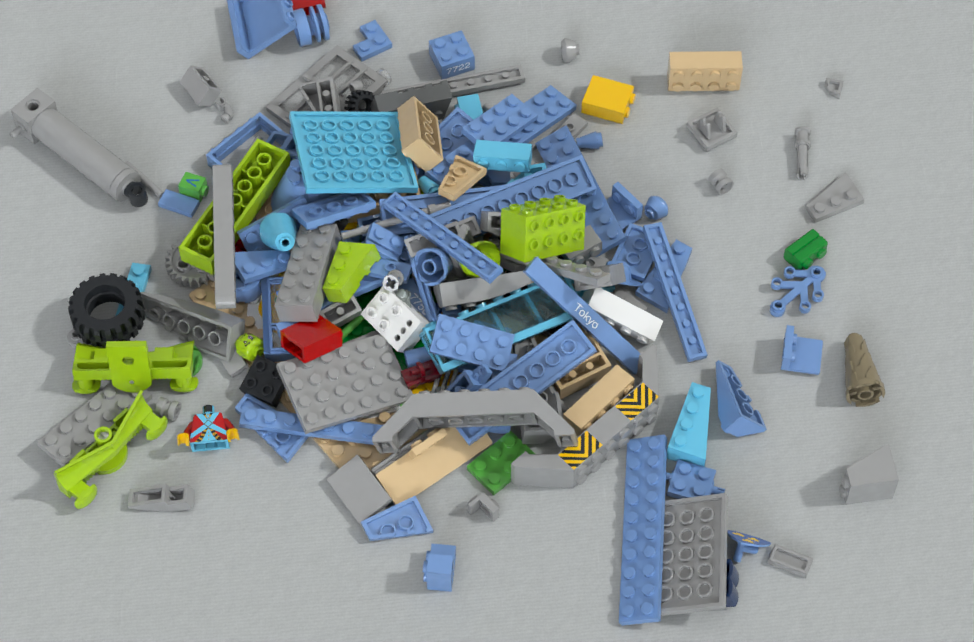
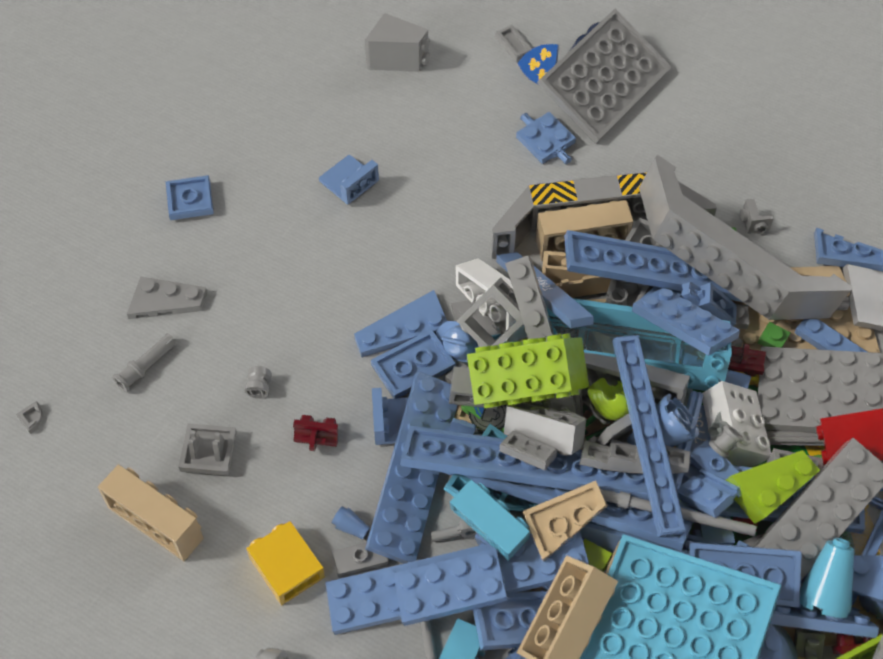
camera: 145 degrees left, 0 degrees up
(427, 185) = (597, 549): medium azure cone -> none
(439, 567) = (834, 186): medium blue brick -> none
(503, 200) = (528, 450): none -> light grey plate
(643, 531) = (622, 119): medium blue plate -> none
(651, 178) = (316, 433): none -> dark red hips
(656, 208) = (353, 394): medium blue cone -> none
(675, 292) = (413, 296): medium blue plate -> none
(691, 429) = (508, 172): medium azure wedge -> none
(734, 405) = (453, 163): medium blue wedge -> none
(798, 287) = (291, 234): medium blue plant -> none
(805, 250) = (248, 261): green brick -> none
(861, 376) = (319, 123): dark tan cone -> none
(893, 270) = (189, 197): none -> medium blue plate

